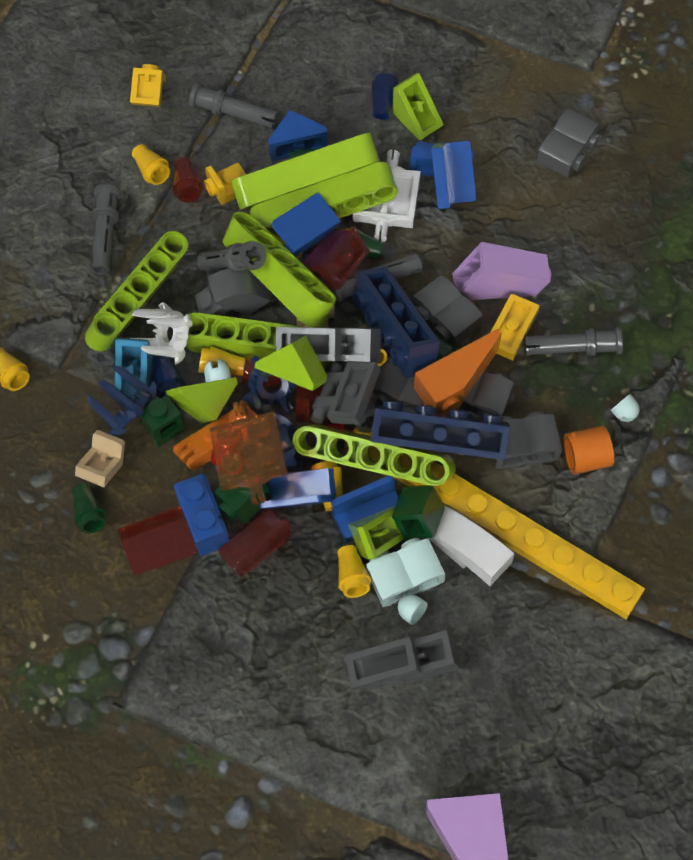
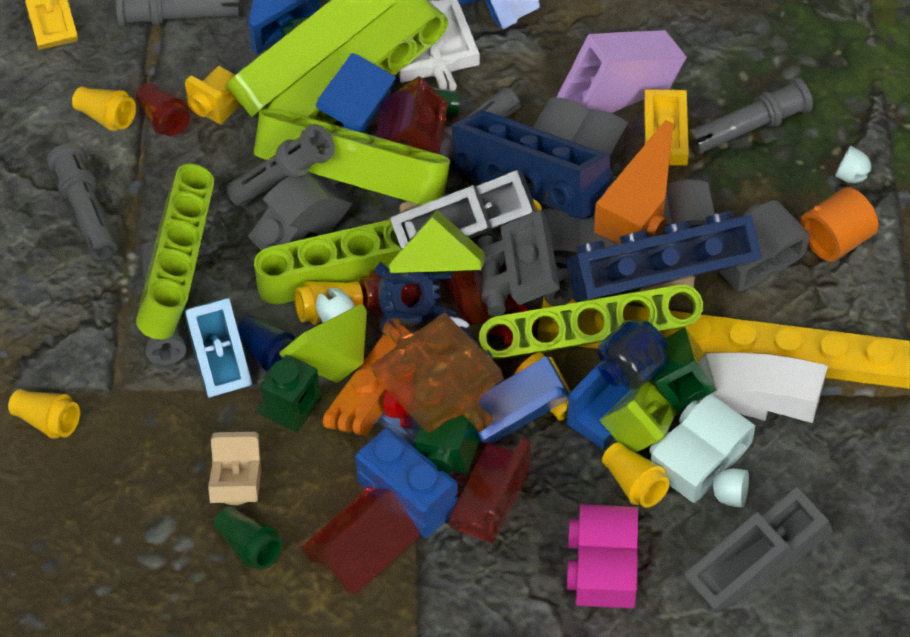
camera: 25 degrees left, 10 degrees down
(131, 408) = (246, 393): dark blue piece -> none
(163, 319) = (231, 269): white piece -> none
(301, 620) = (606, 556): none -> dark pink brick
(383, 491) = (632, 354): none -> clear blue head

